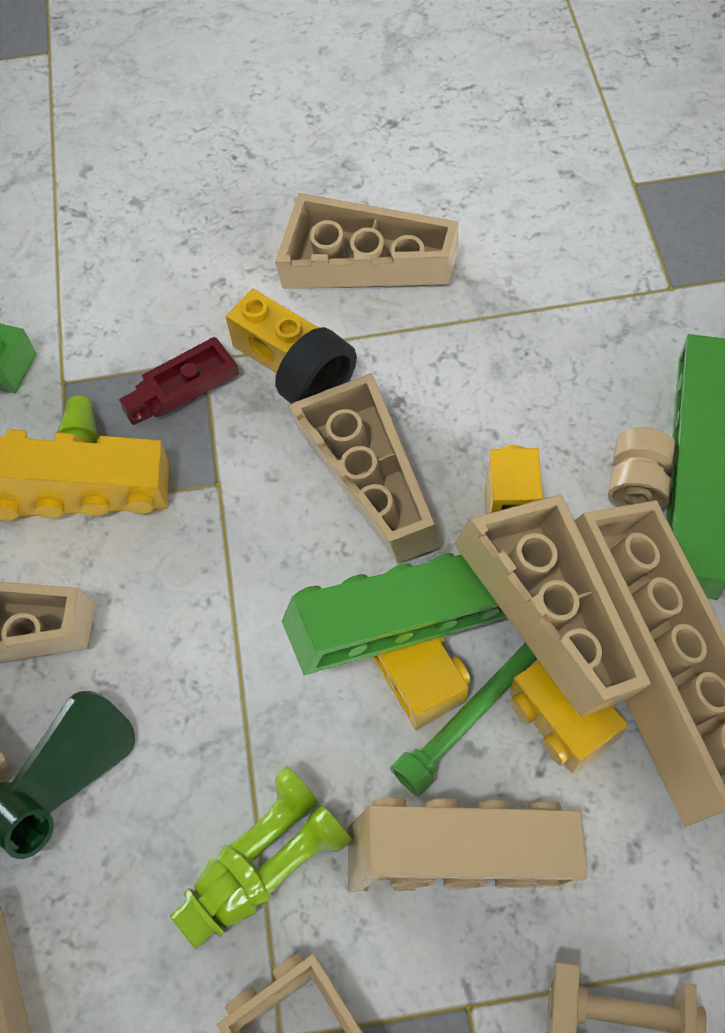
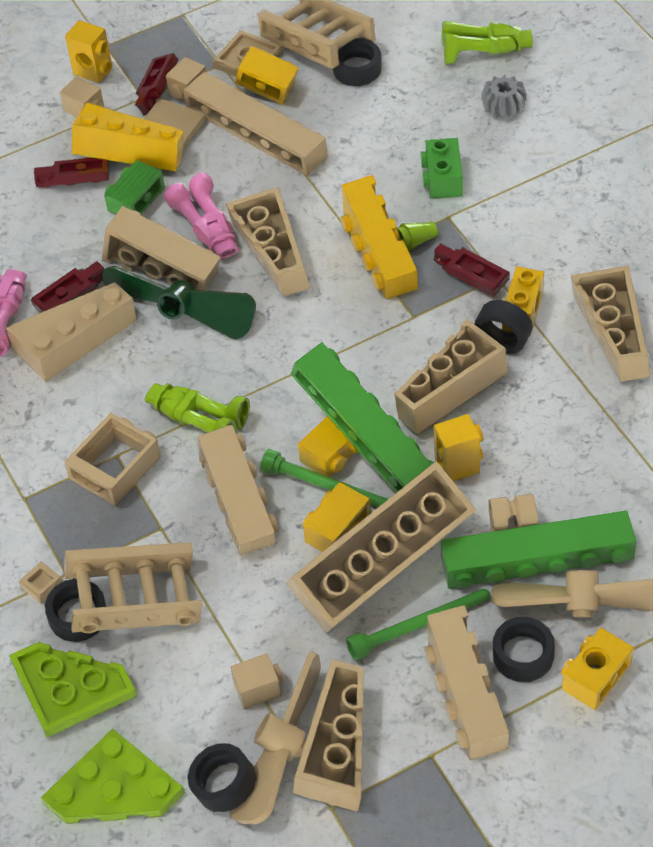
camera: 70 degrees right, 10 degrees down
(555, 600) = (384, 467): tan wedge -> none

